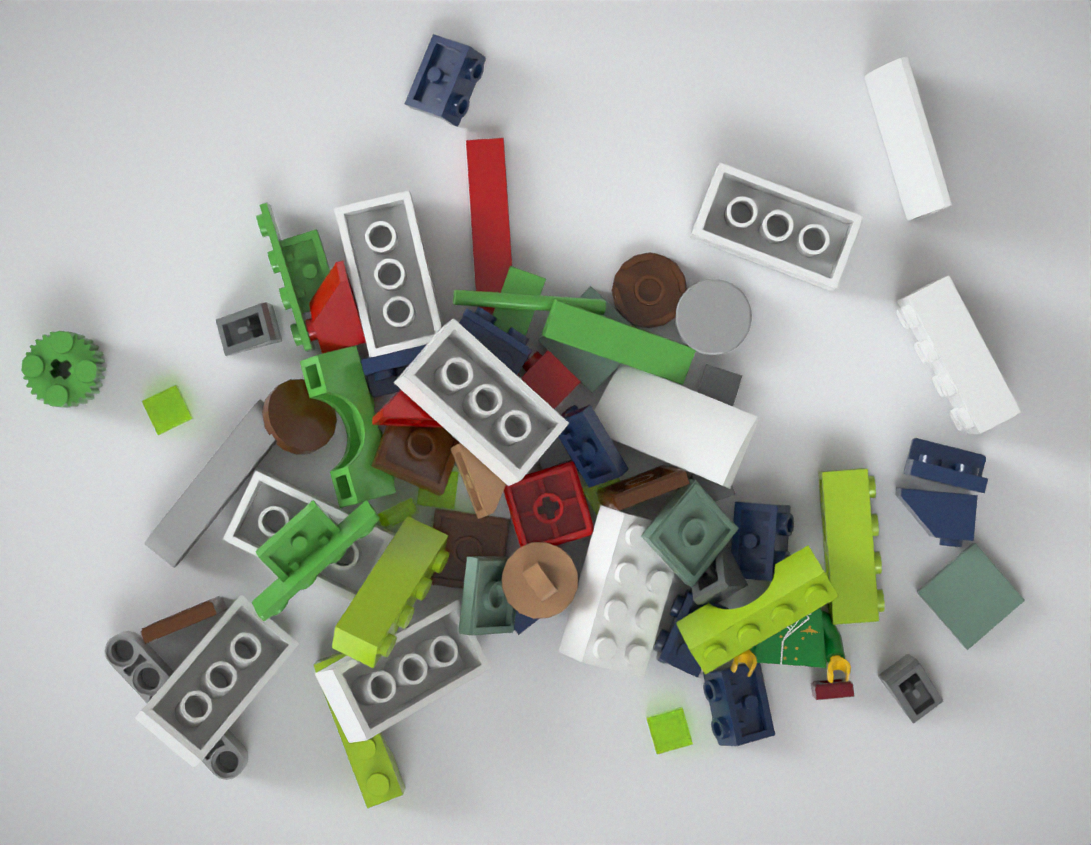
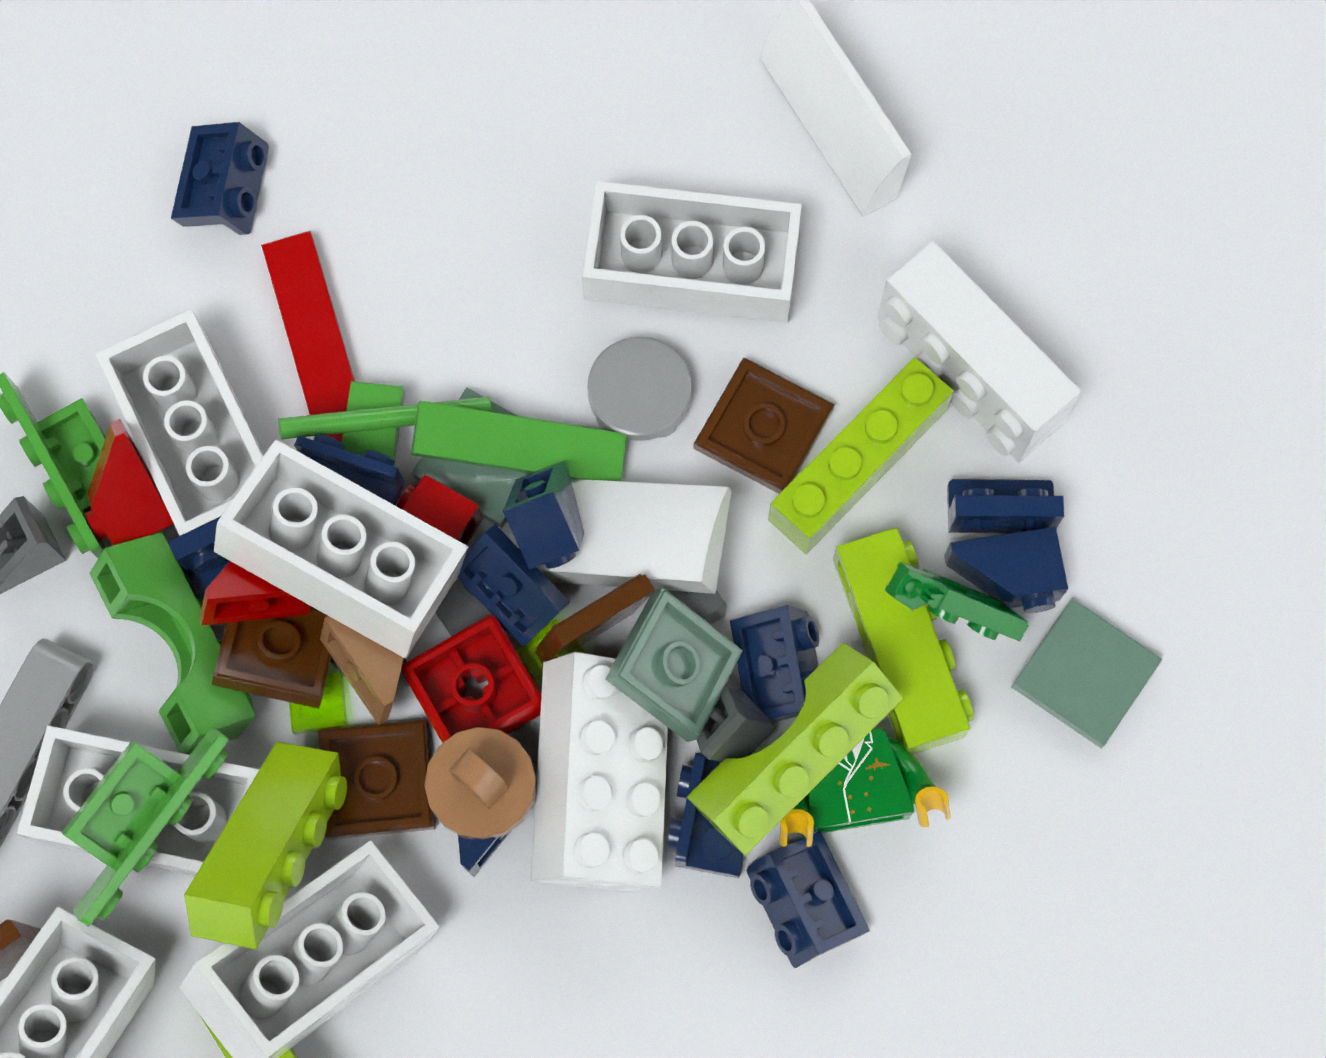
camera: 10 degrees left, 15 degrees down
(296, 420) = (99, 651): reddish brown tile -> none
(398, 513) = (258, 746): clear neon green tile -> none
(483, 600) = (407, 833): sand green tile -> none
(626, 405) = (545, 517): none -> dark blue slope
(648, 290) = (545, 375): reddish brown tile -> none
(669, 730) = (718, 963): clear neon green tile -> none
(719, 384) = (670, 468): dark grey tile -> none
(794, 364) = (763, 426): none -> reddish brown tile
(838, 689) = (932, 844): dark red tile -> none
(857, 407) = (860, 455): none -> lime brick
(894, 532) = (953, 600): none -> green hinge
(911, 687) = (1043, 817): dark grey slope -> none

